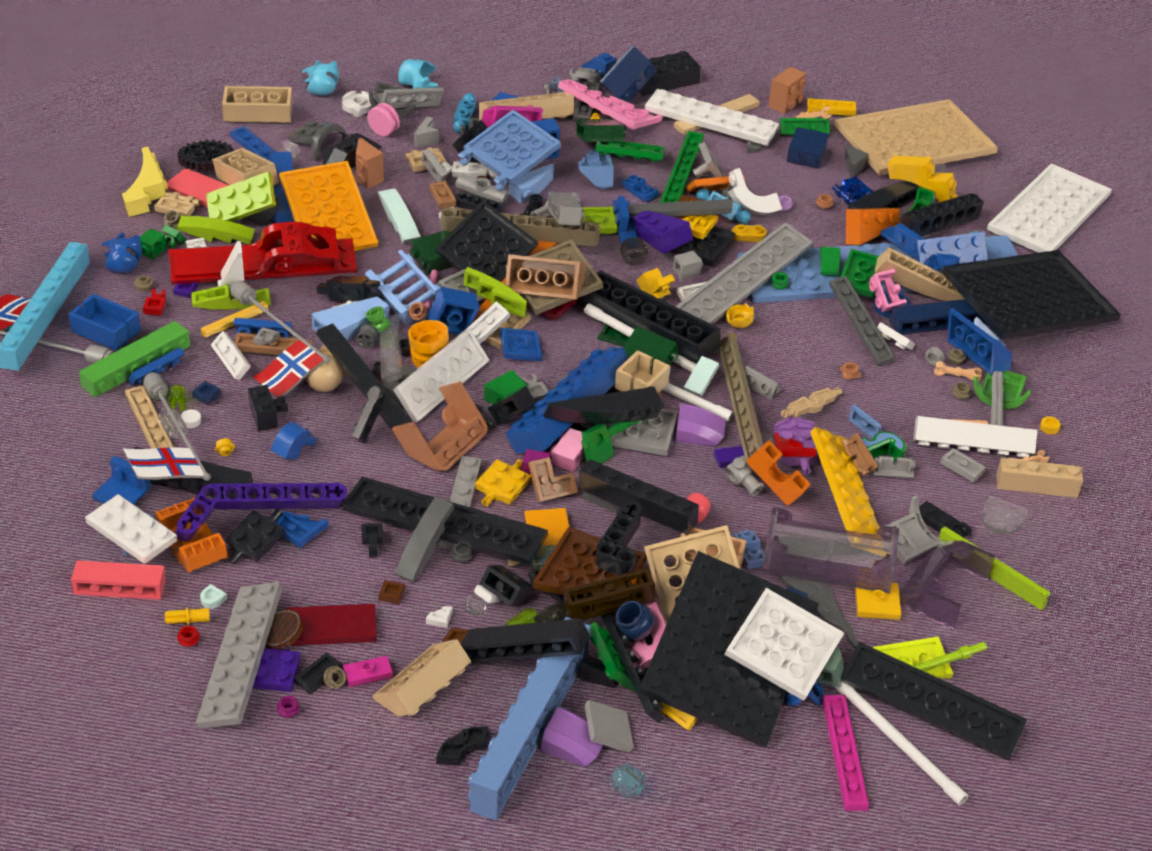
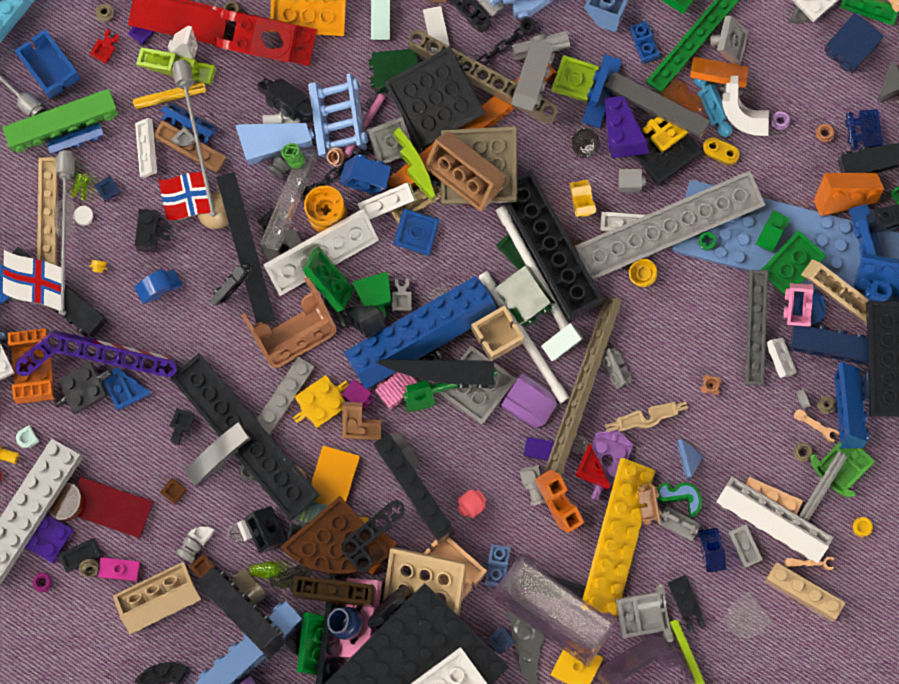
camera: 30 degrees right, 35 degrees up
(435, 628) = (185, 553): none -> light grey wheel
(446, 372) = (328, 279): none -> green plate
(670, 593) = (388, 606): none -> black tile
(938, 475) = (712, 550): none -> clear blue slope

